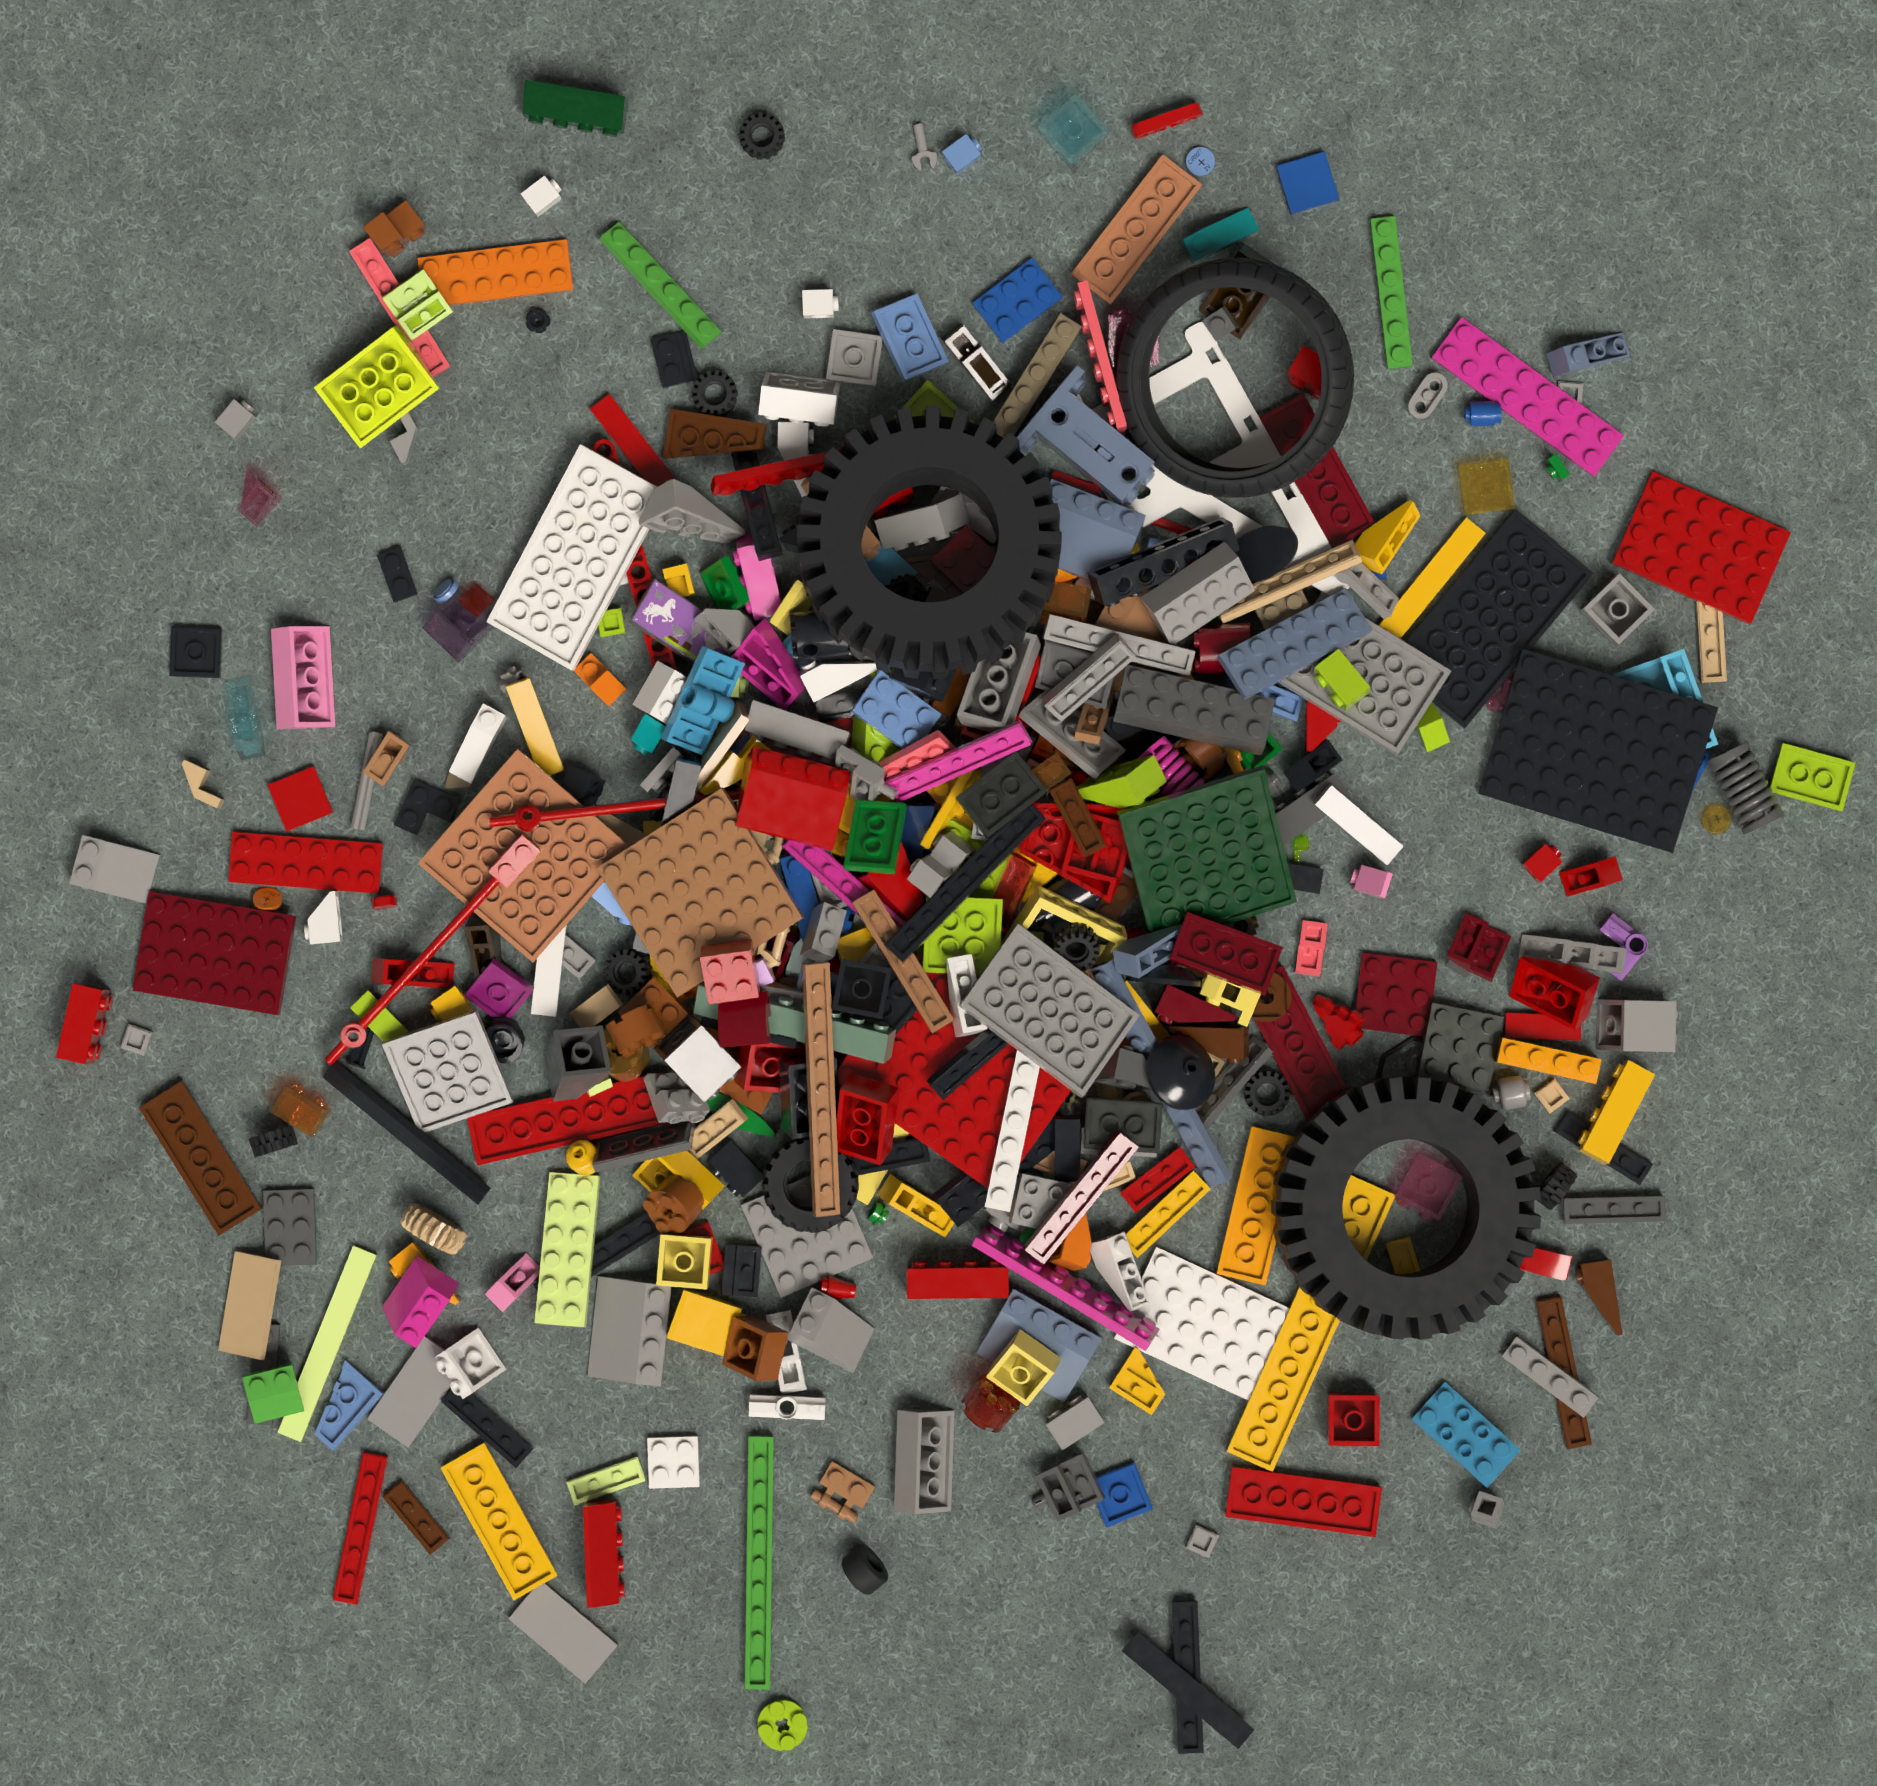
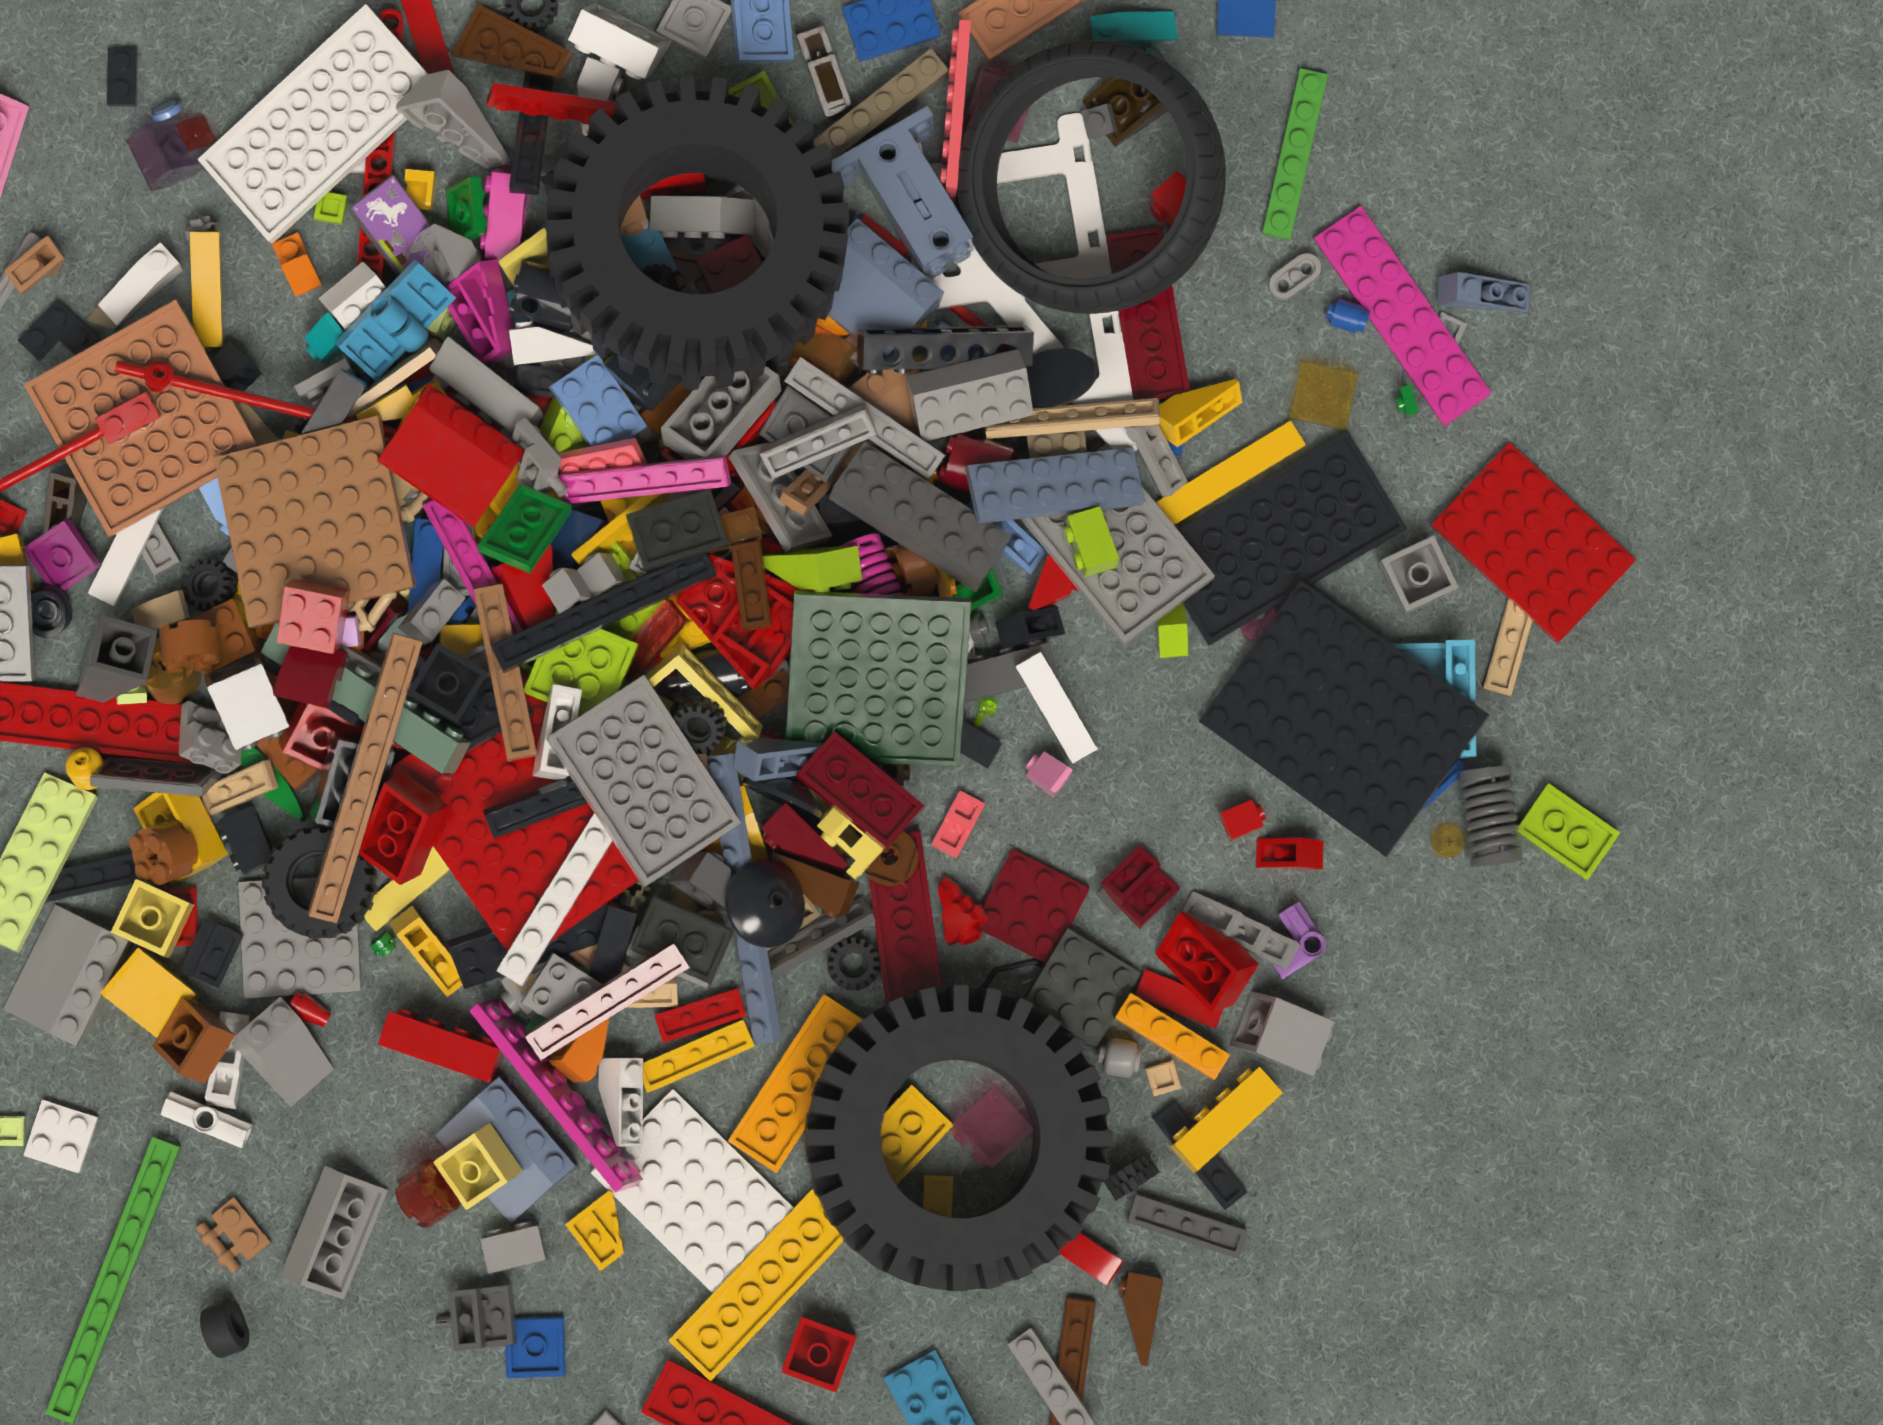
camera: 20 degrees right, 5 degrees down
(902, 1154) = (424, 888): black tile -> none

